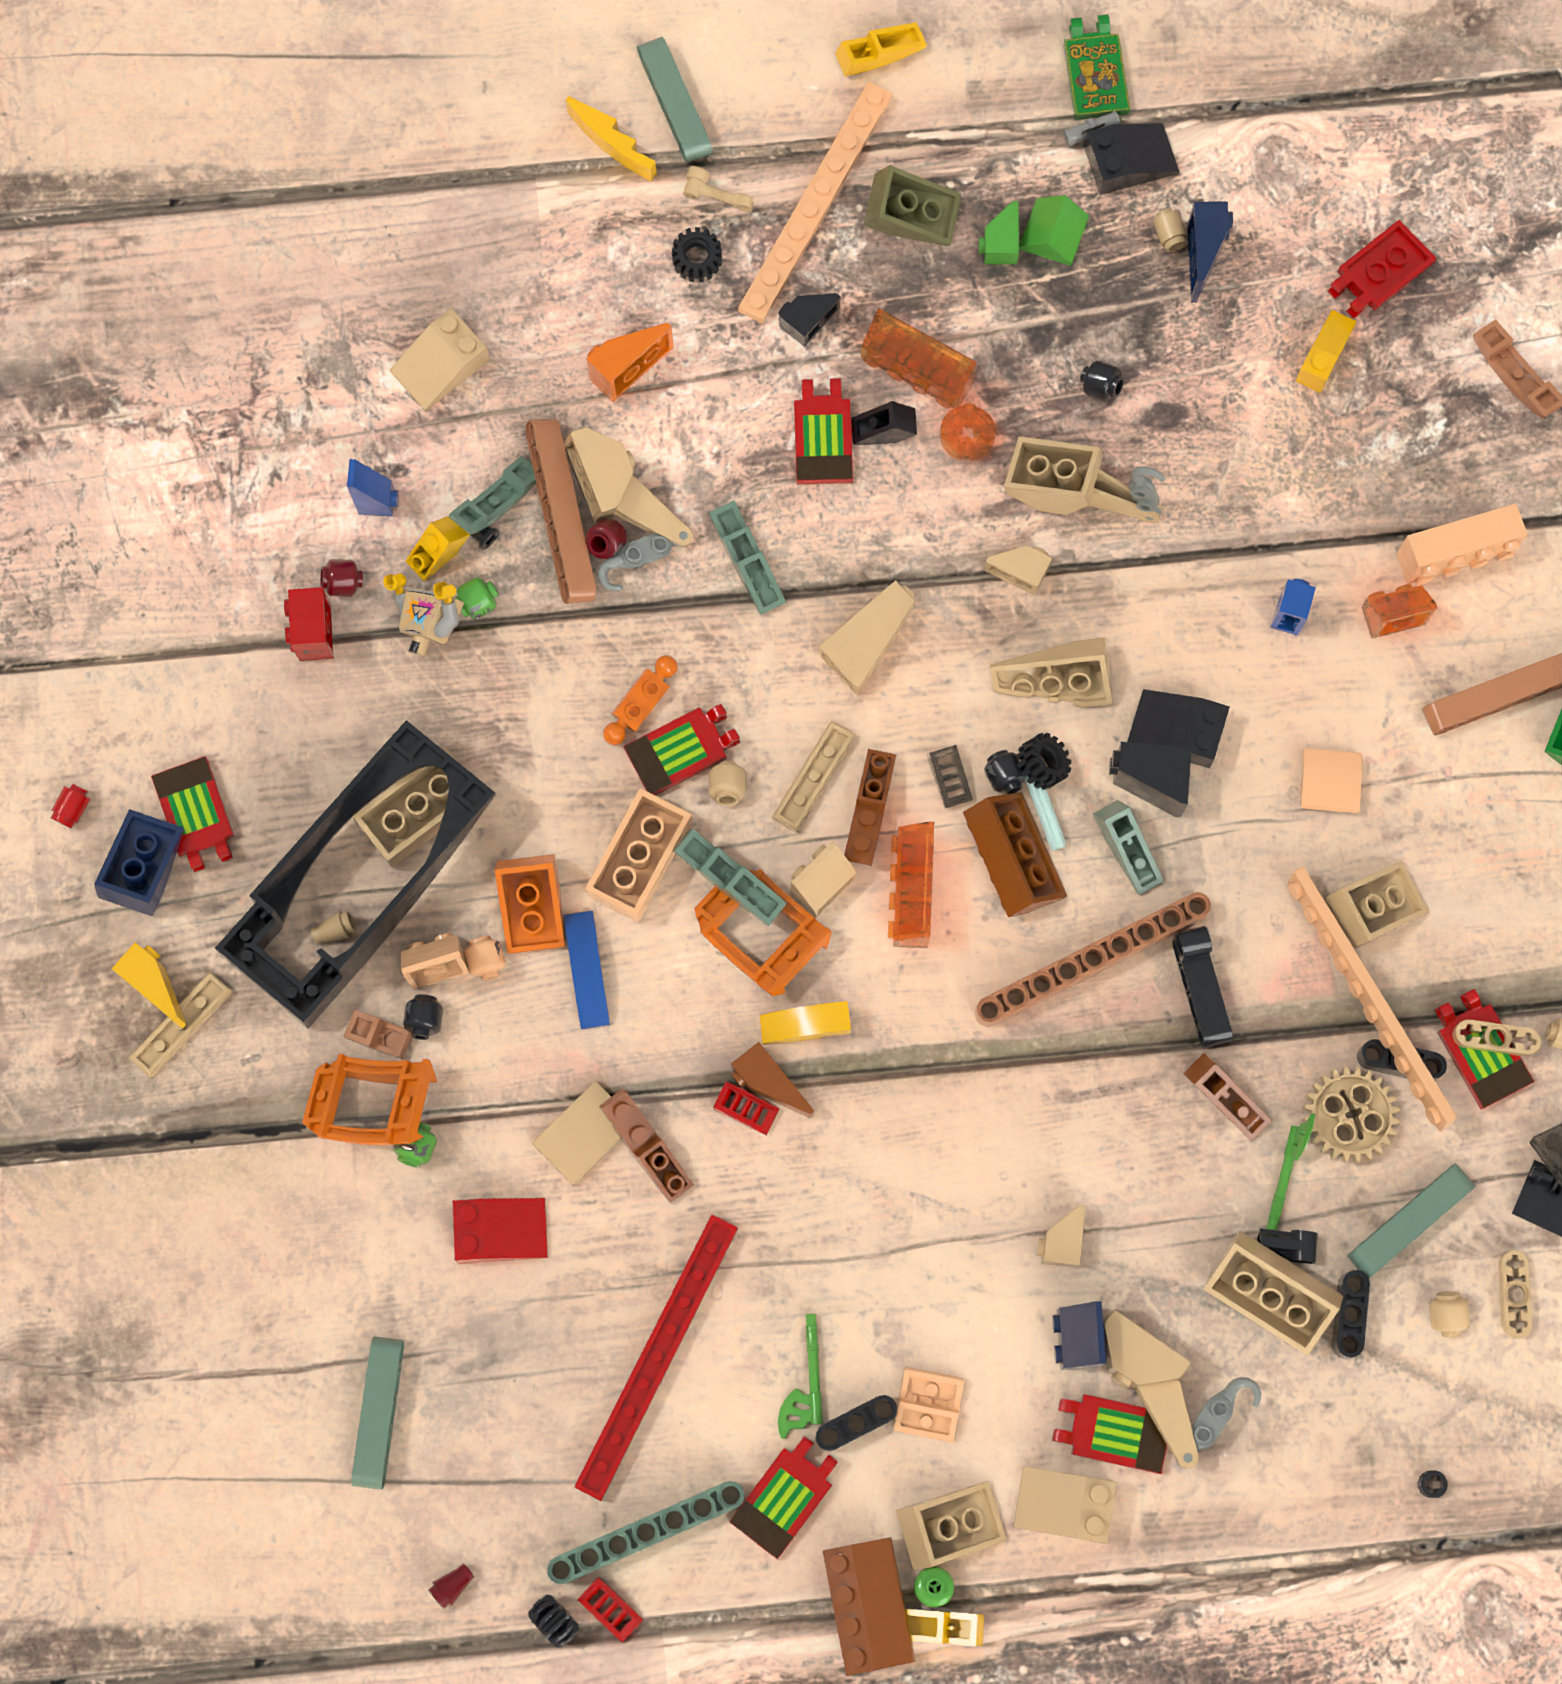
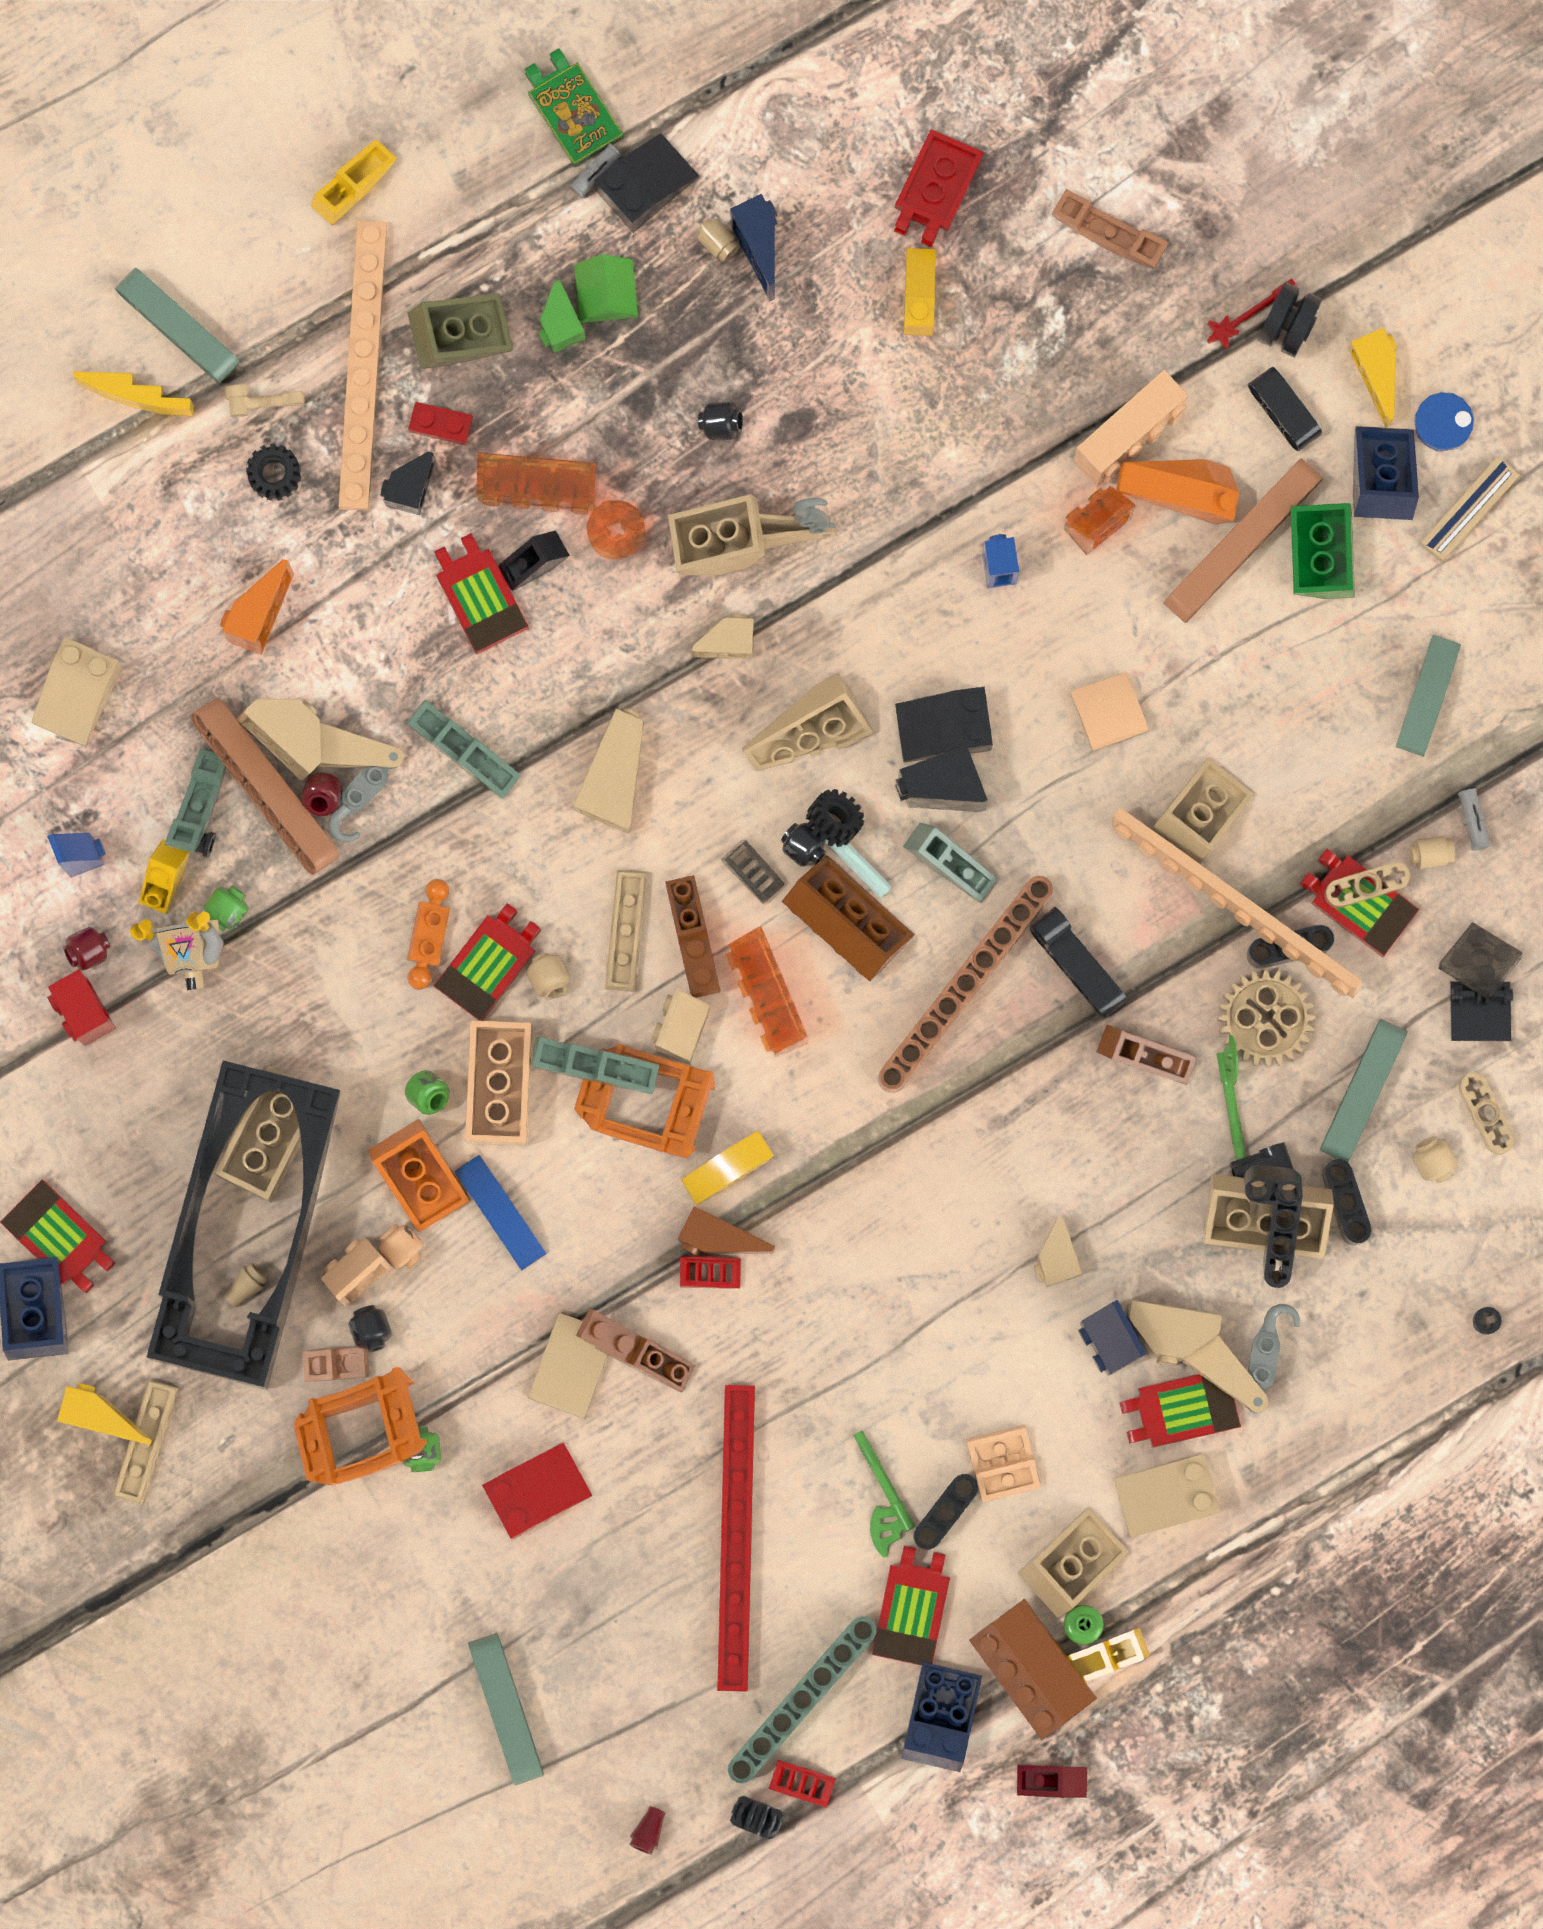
camera: 25 degrees left, 5 degrees up
(572, 834) = (427, 1092): none -> bright green head
(765, 1610) = (941, 1717): none -> dark blue slope
(858, 278) = (440, 423): none -> red plate
(1279, 1306) = (1278, 1227): none -> black beam
(1486, 615) = (1185, 486): none -> orange wedge

